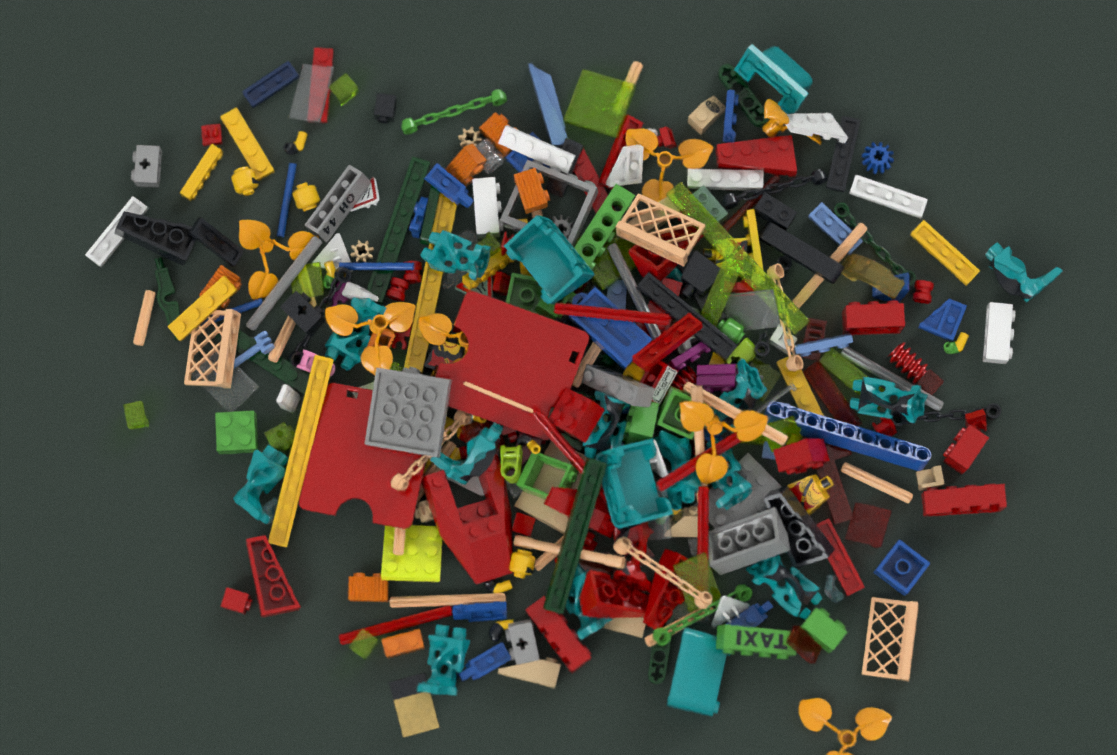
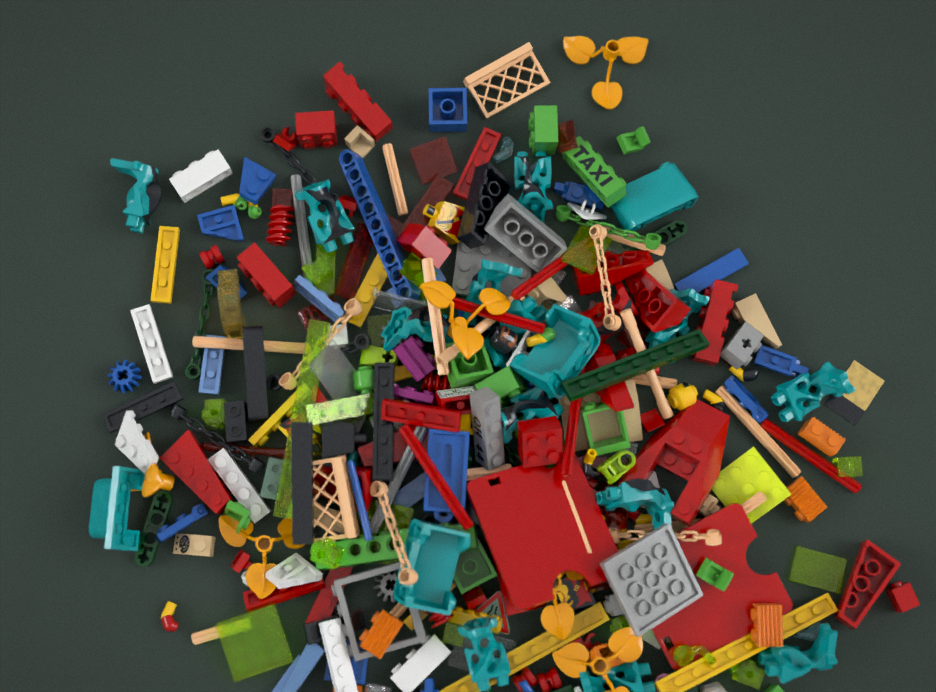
camera: 135 degrees left, 0 degrees up
(304, 474) = (767, 624): none -> orange brick
(308, 557) = (817, 569): none -> clear neon green piece
(334, 397) = (684, 654): none -> clear neon green plate
(372, 464) = (715, 574): none -> bright green bracket
(598, 670) = (716, 270): none -> blue tile
(620, 197) = (326, 553): none -> clear neon green brick
(636, 272) = (407, 575): none -> light nougat piece
(641, 250) = (359, 500): none -> blue bar
(653, 490) = (549, 334): none -> arm
(669, 57) = (167, 619): none -> arm
(676, 453) = (503, 339): none -> black head
(687, 218) = (302, 483): none -> black tile
(706, 162) = (238, 512): none -> bright green bracket
(757, 698) = (633, 141): none -> bright green bracket
(796, 200) = (214, 413): none -> clear neon green brick
(847, 360) = (317, 271): none -> clear neon green panel
(936, 351) = (253, 210): none -> bright green arm
(961, 371) = (255, 181): none -> blue wing

